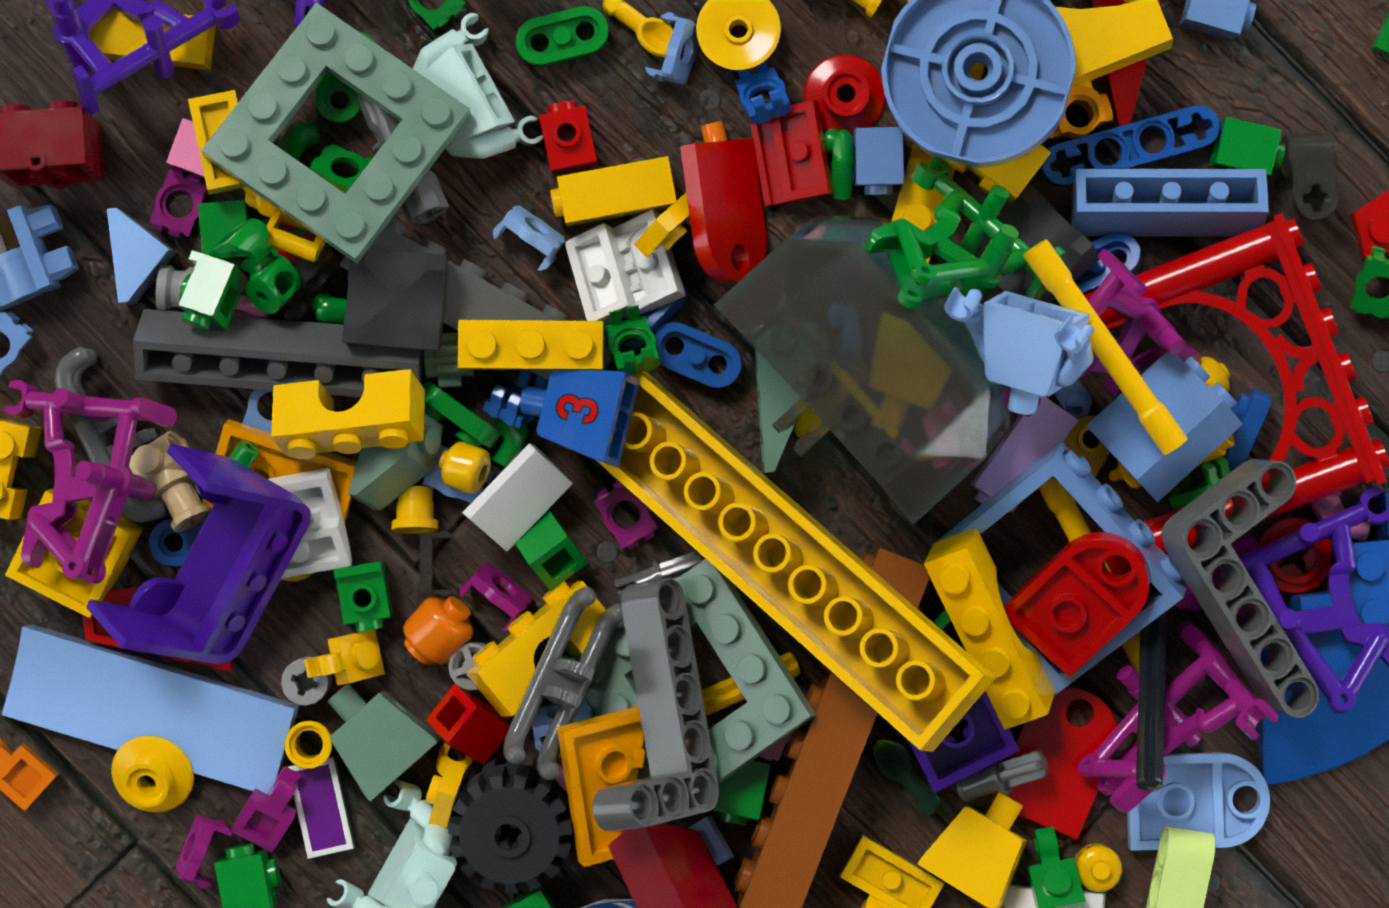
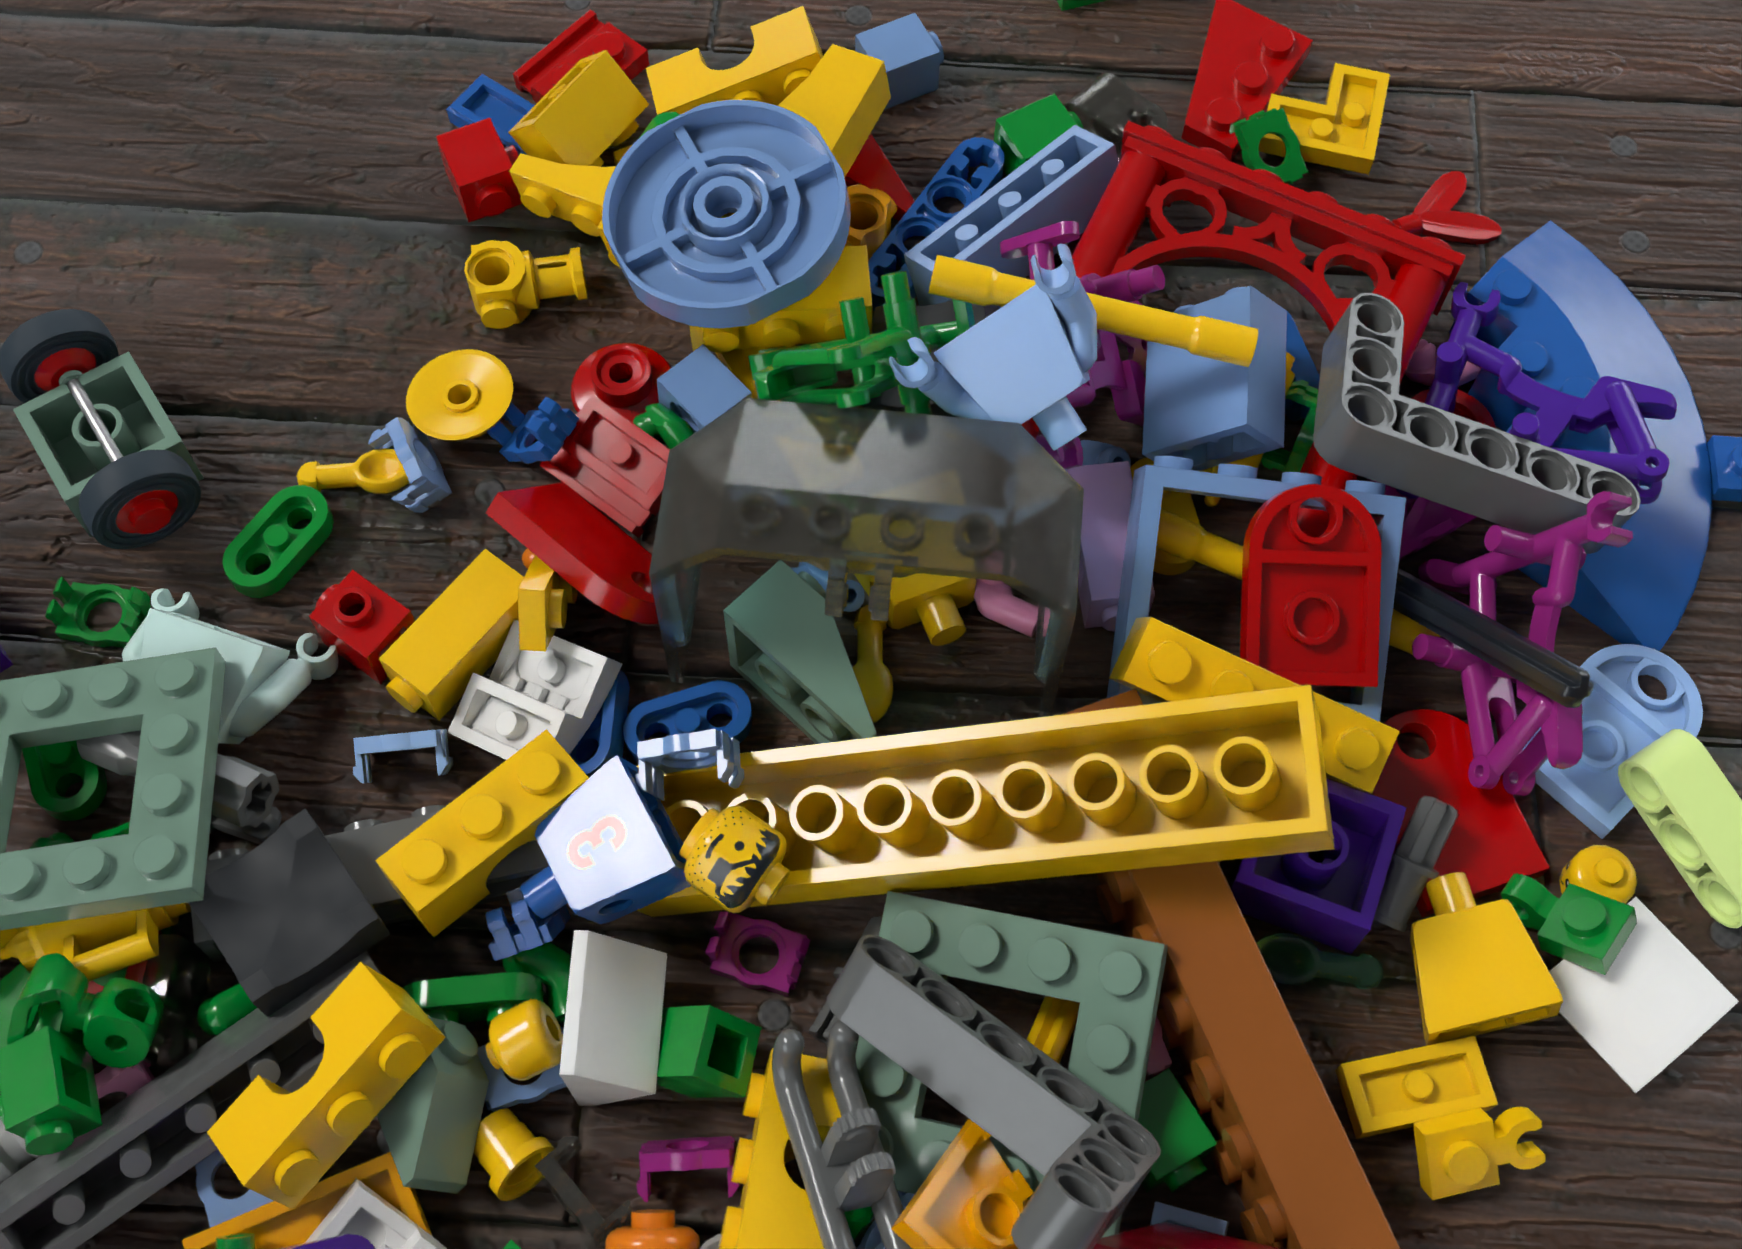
camera: 40 degrees left, 25 degrees down
(445, 363) = (411, 950): sand green gear -> none
(637, 328) = (599, 735): green piece -> none
(638, 481) = (735, 858): none -> yellow head
(682, 415) = (688, 752): none -> medium blue piece

